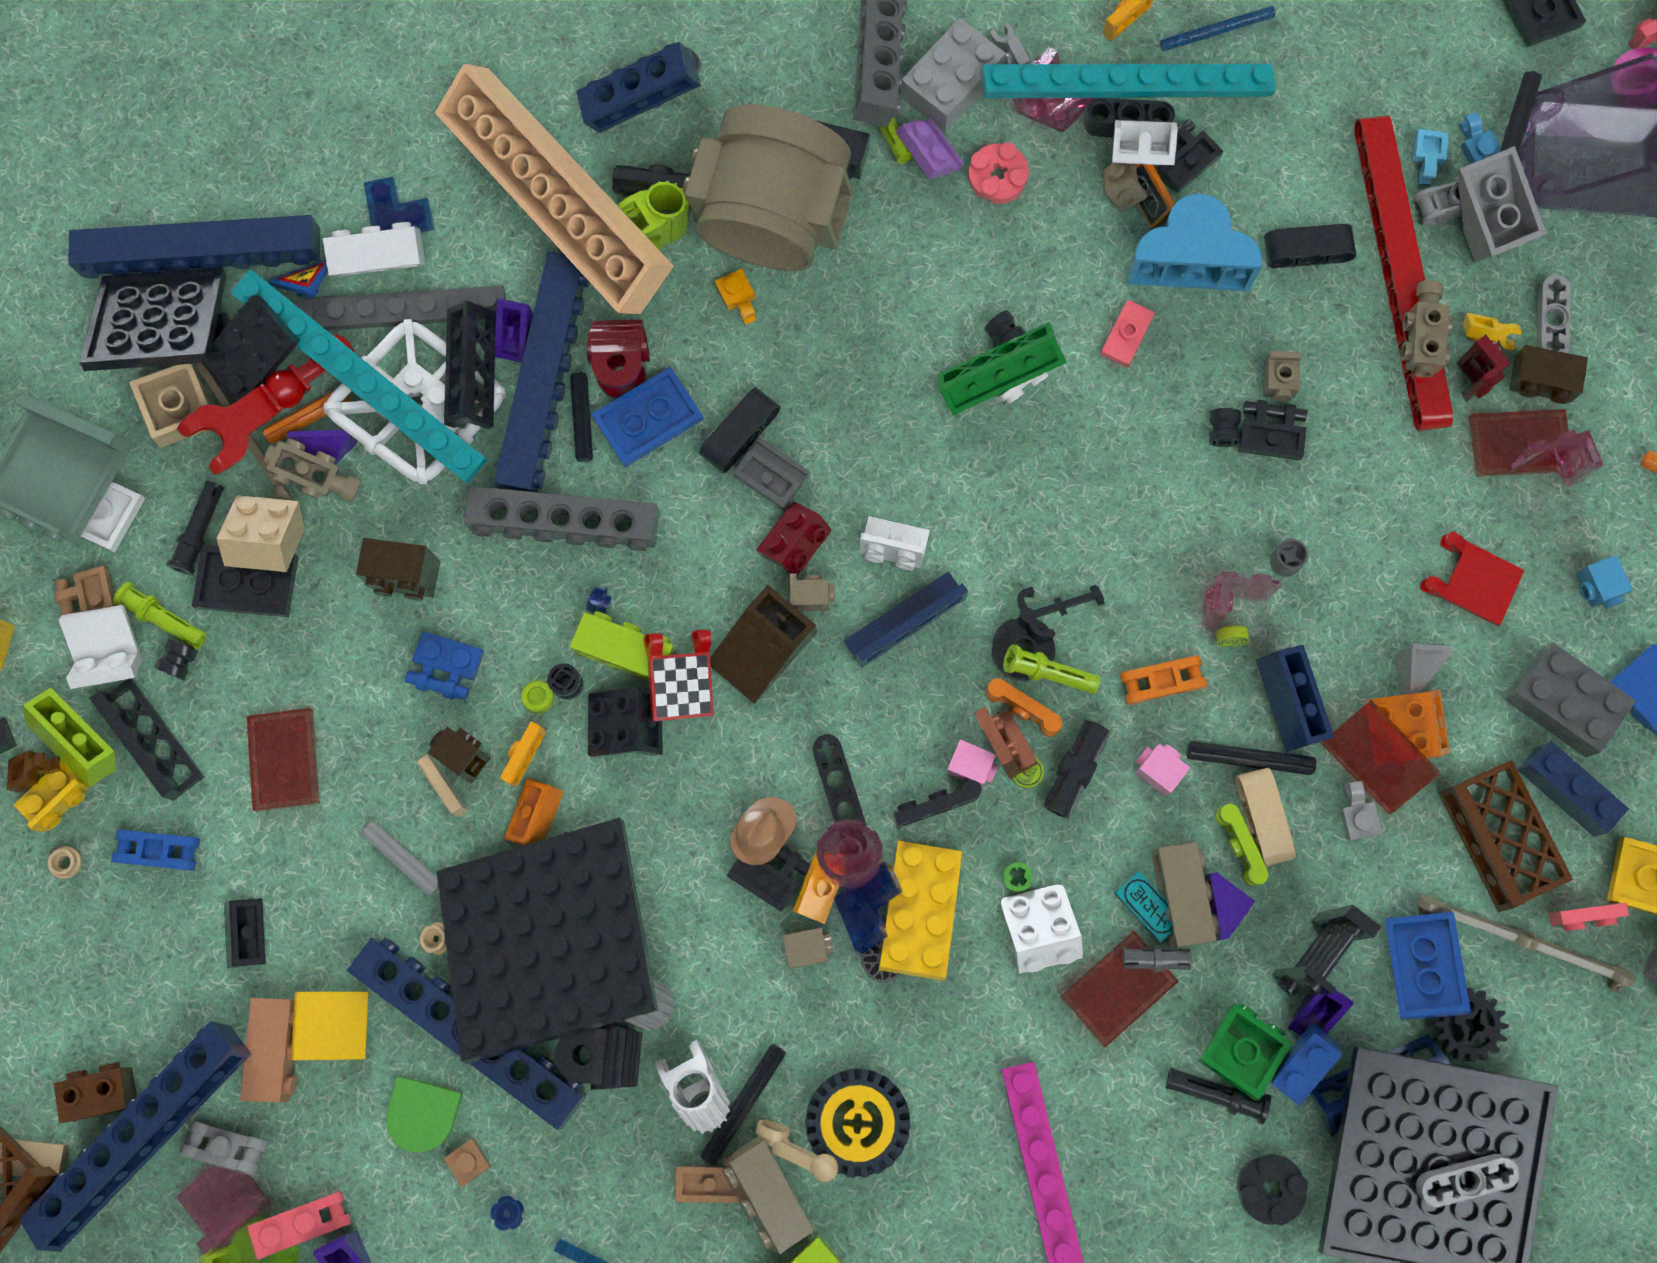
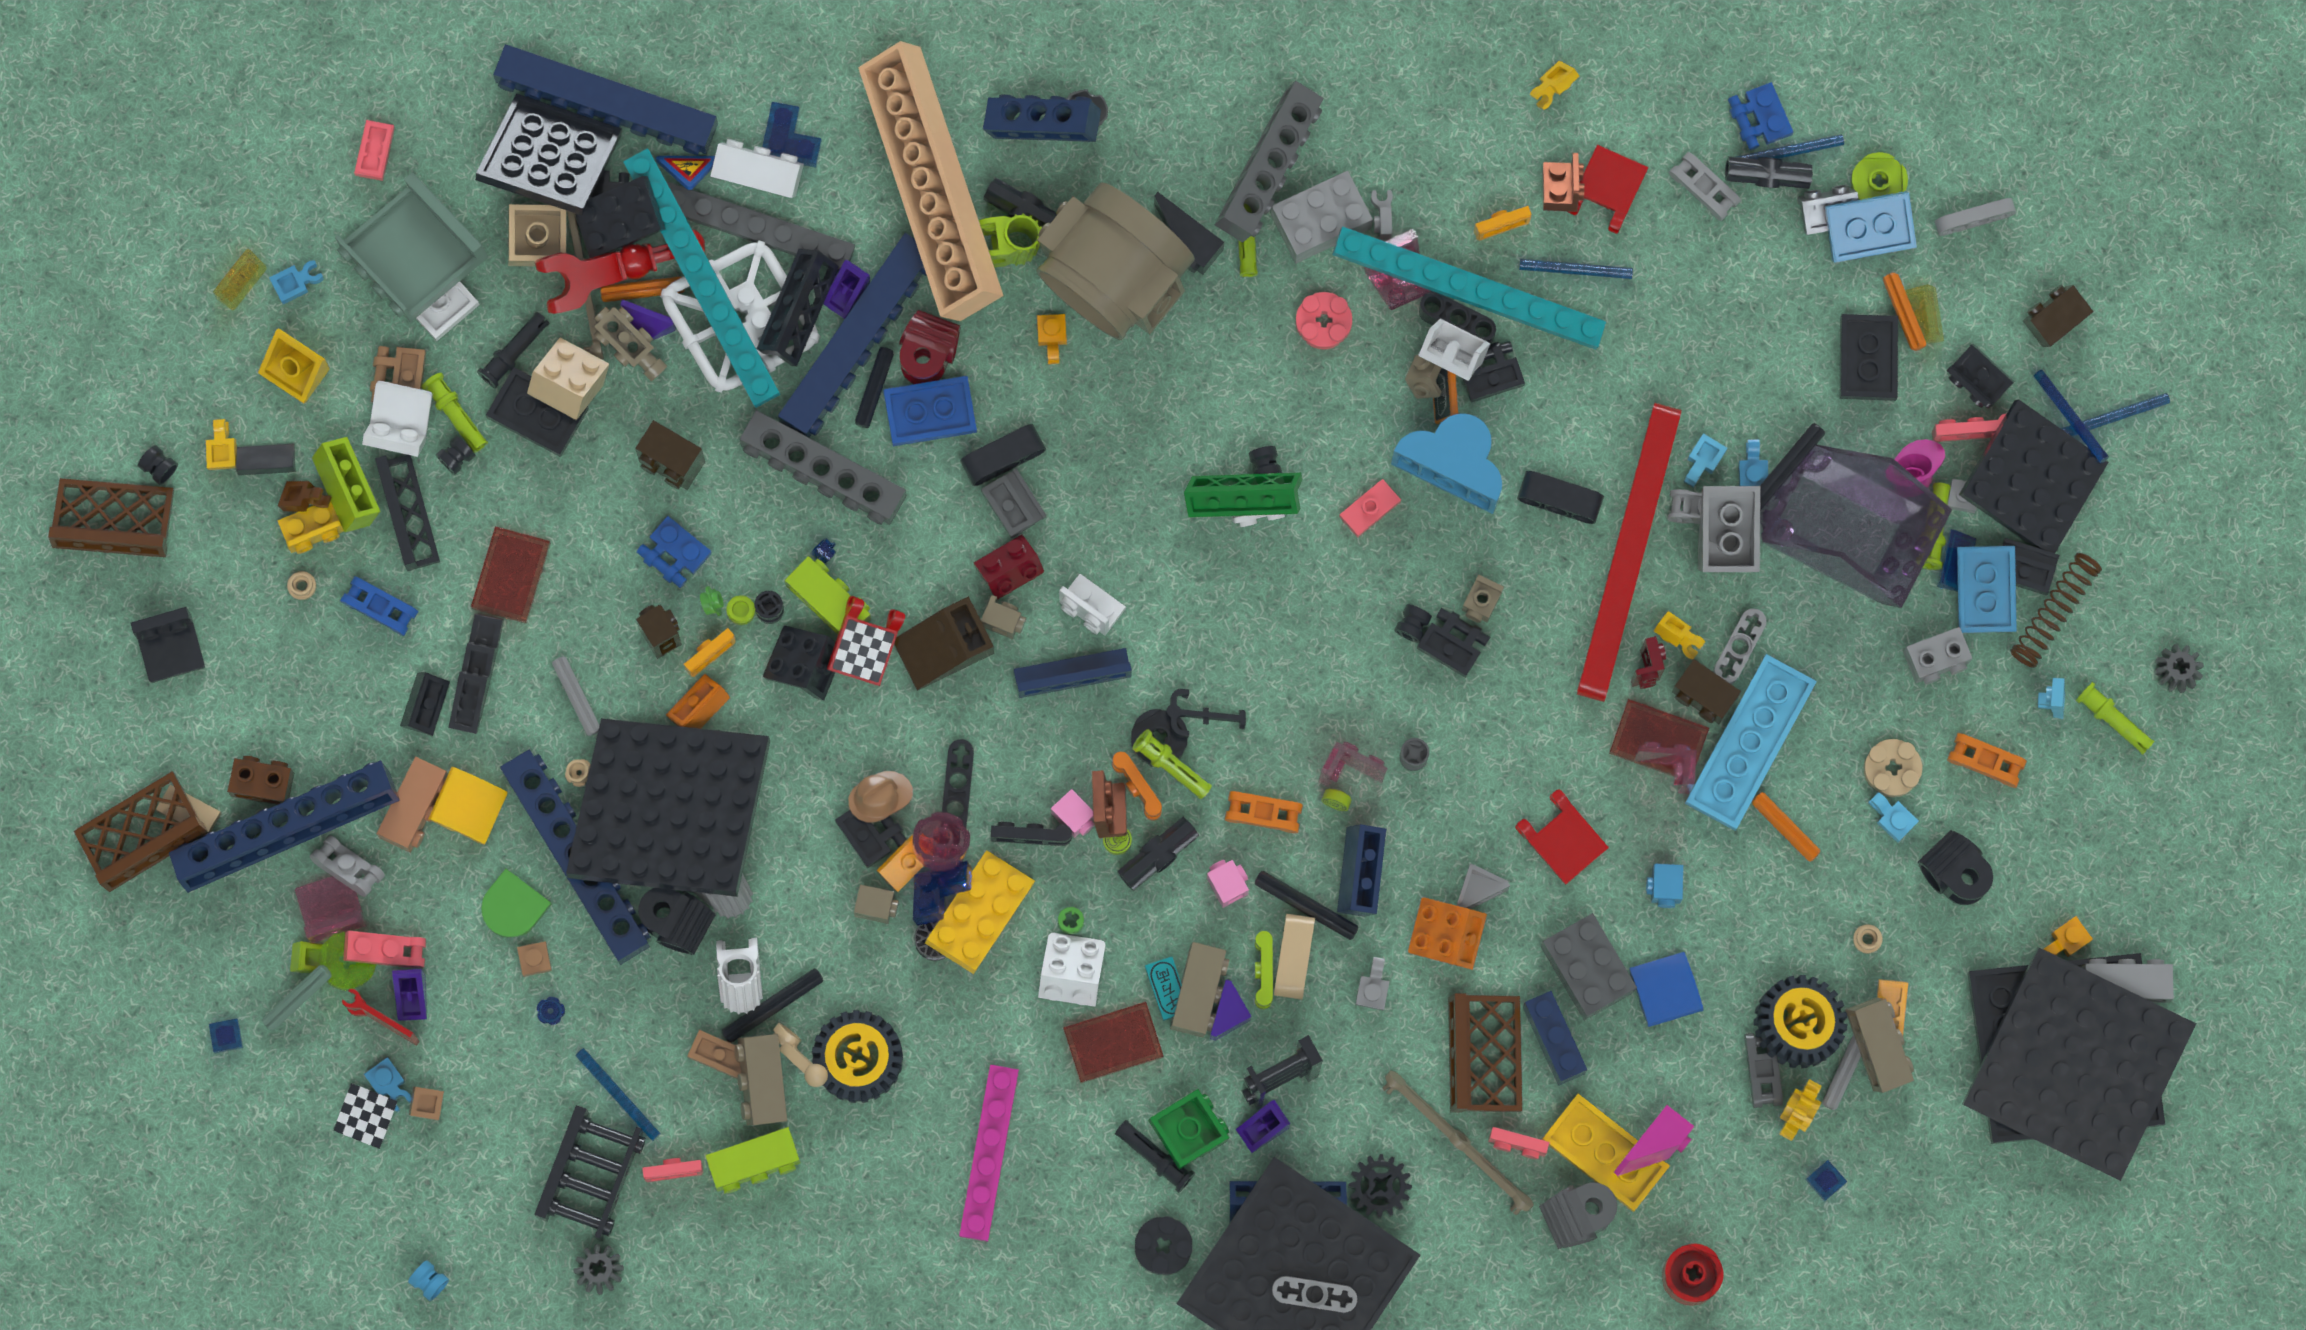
camera: 15 degrees right, 0 degrees up
(285, 878) = (476, 673): none -> black slope
(442, 785) = (633, 651): tan tile -> none
(503, 700) = (711, 601): none -> bright green plate
(930, 148) = (1273, 274): medium lavender plate -> none
(1156, 959) = (1152, 1029): dark grey pin -> none
(1306, 1064) = (1232, 1158): blue brick -> none
(1381, 757) = (1409, 947): clear red tile -> none
(1425, 332) = (1614, 616): dark tan brick -> none
(1427, 966) = (1366, 1125): blue plate -> none
(1615, 404) = (1750, 742): none -> medium azure plate

